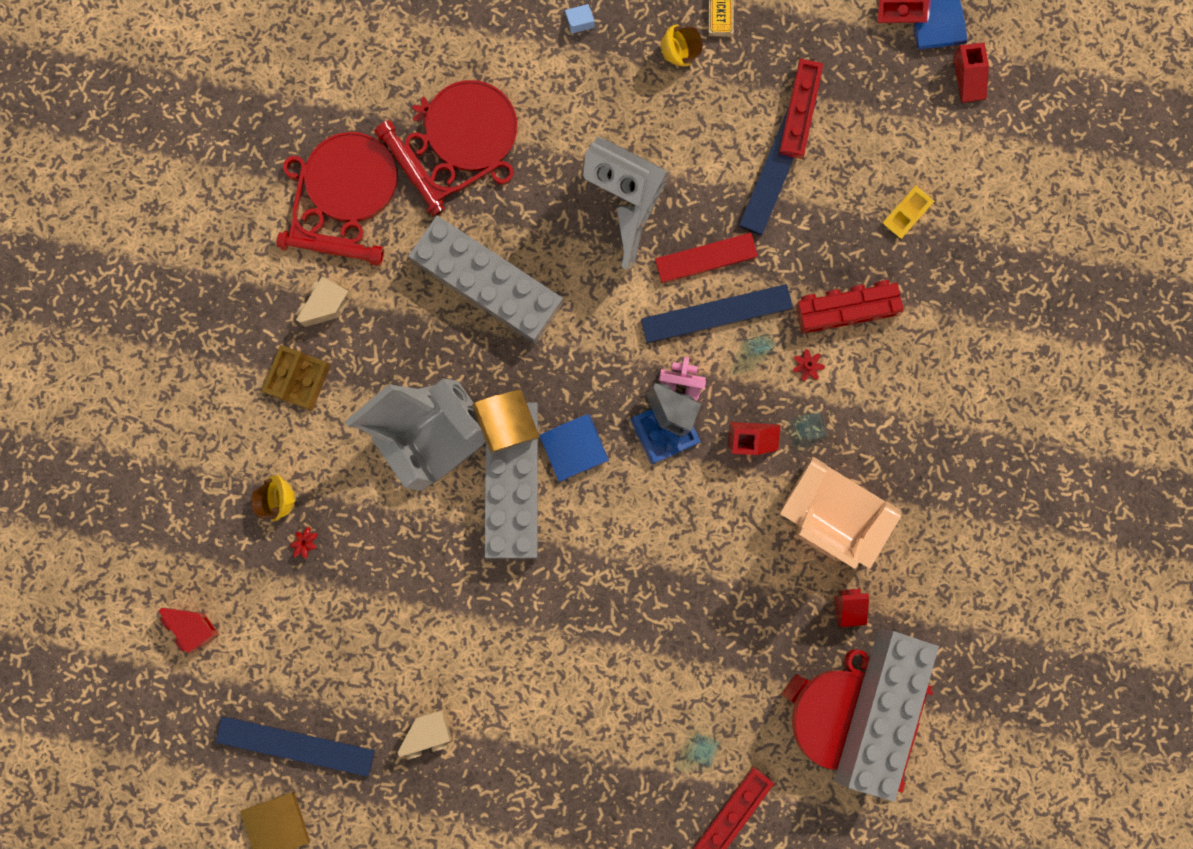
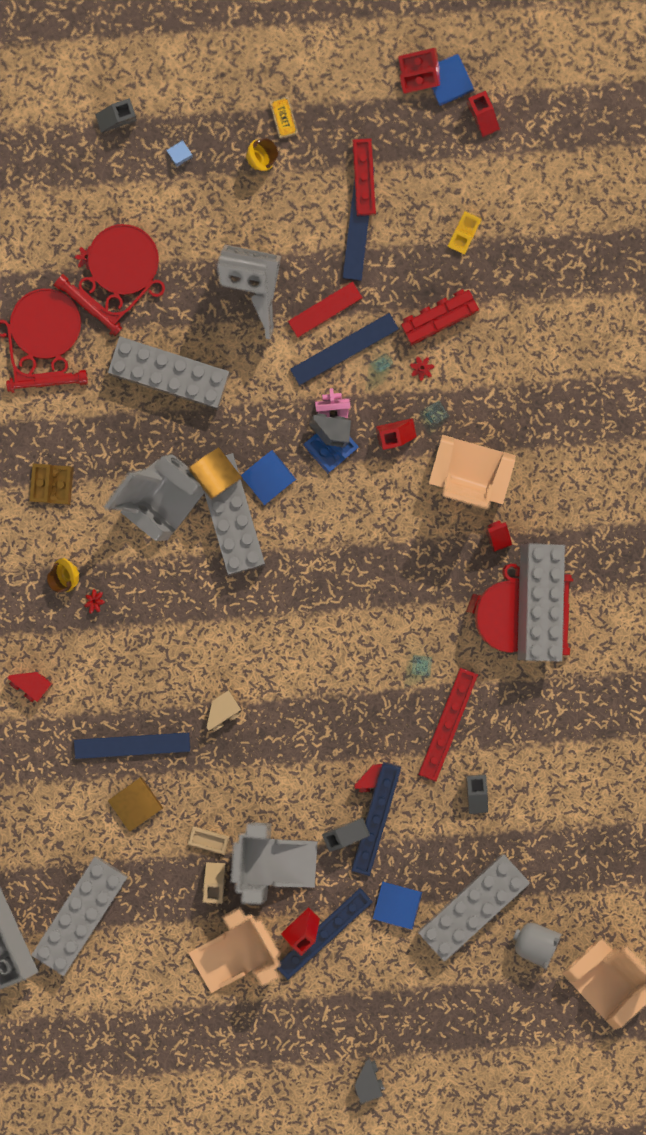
camera: 15 degrees left, 5 degrees up
(324, 304) = (56, 423): tan slope -> none

